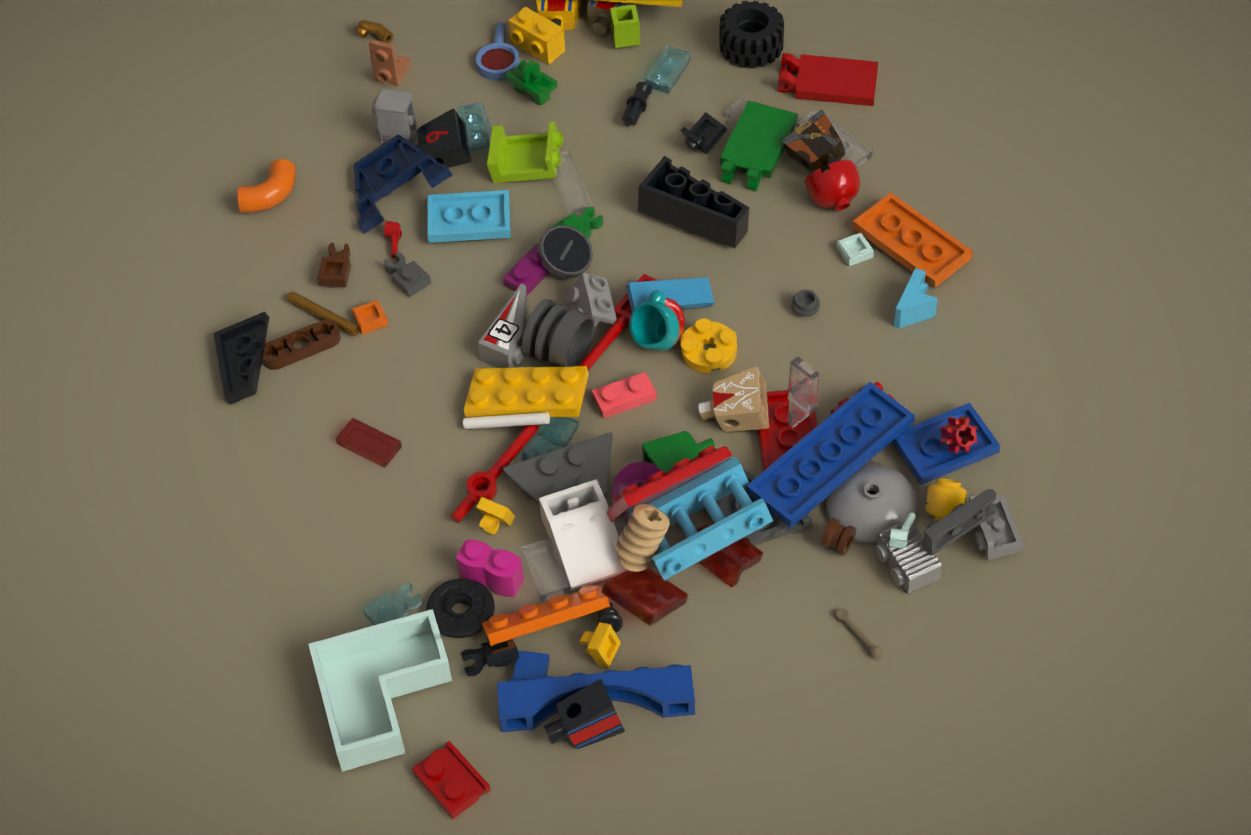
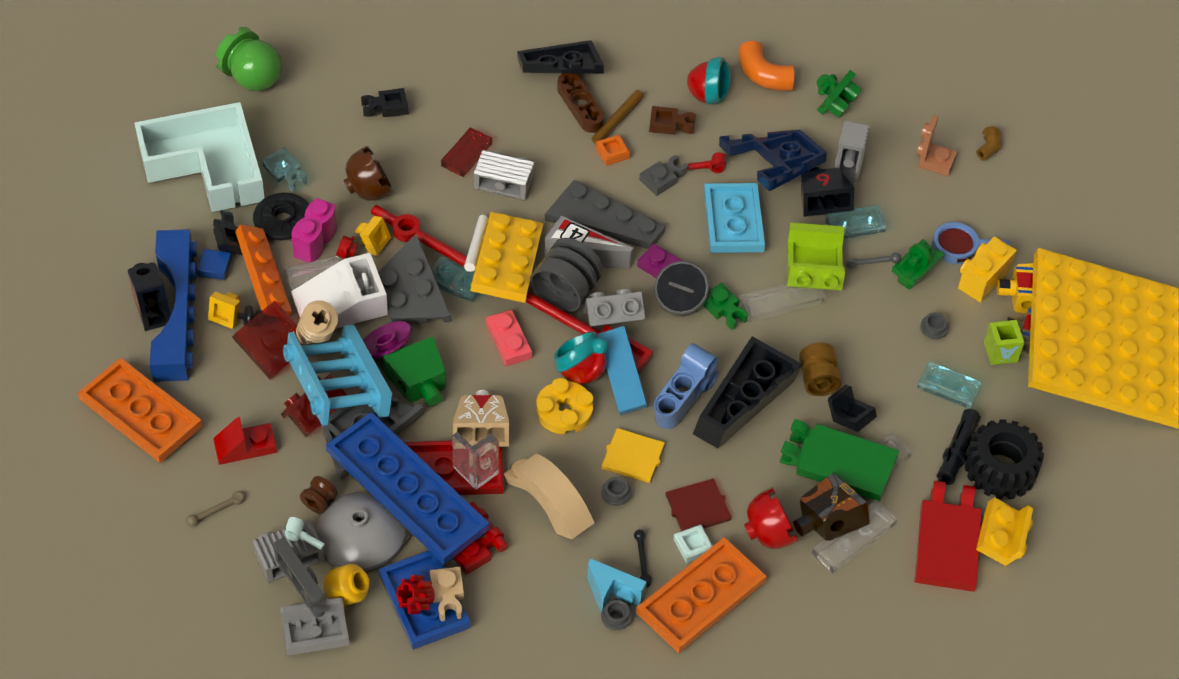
camera: 85 degrees right, 0 degrees up
(232, 647) = (249, 60): none -> bright green tile
(286, 228) = (710, 81): none -> teal piece
(294, 517) = (389, 102): none -> black plate
(303, 134) = (834, 103): none -> green hips
(407, 402) = (504, 174): none -> light grey brick
(413, 521) = (366, 176): none -> reddish brown cylinder
(451, 779) = (117, 212): red plate -> none
(456, 330) = (605, 216): none -> dark grey wing
(510, 540) = (346, 247): none -> red plate
(531, 91) = (853, 262): none -> dark grey hinge
(599, 77) = (934, 326): none -> dark grey plate
(636, 104) = (895, 356): black axle -> none
(654, 149) = (820, 369): none -> pearl gold wheel
(663, 483) = (363, 335): red tile -> none
(676, 236) = (695, 373): none -> medium blue piece
(741, 715) = (140, 410): none -> orange plate
(744, 69) = (955, 455): none -> black pin
(759, 295) = (633, 455): none -> yellow piece
(775, 614) = (240, 444): none -> red slope
(812, 247) = (698, 505): none -> clear red piece
(823, 37) = (1004, 531): none -> yellow bracket
(823, 337) = (553, 492): none -> tan arch
(897, 284) = (639, 535): none -> black hinge
(936, 416) = (448, 590): none -> tan plate
(945, 298) = (616, 607): none -> dark grey plate

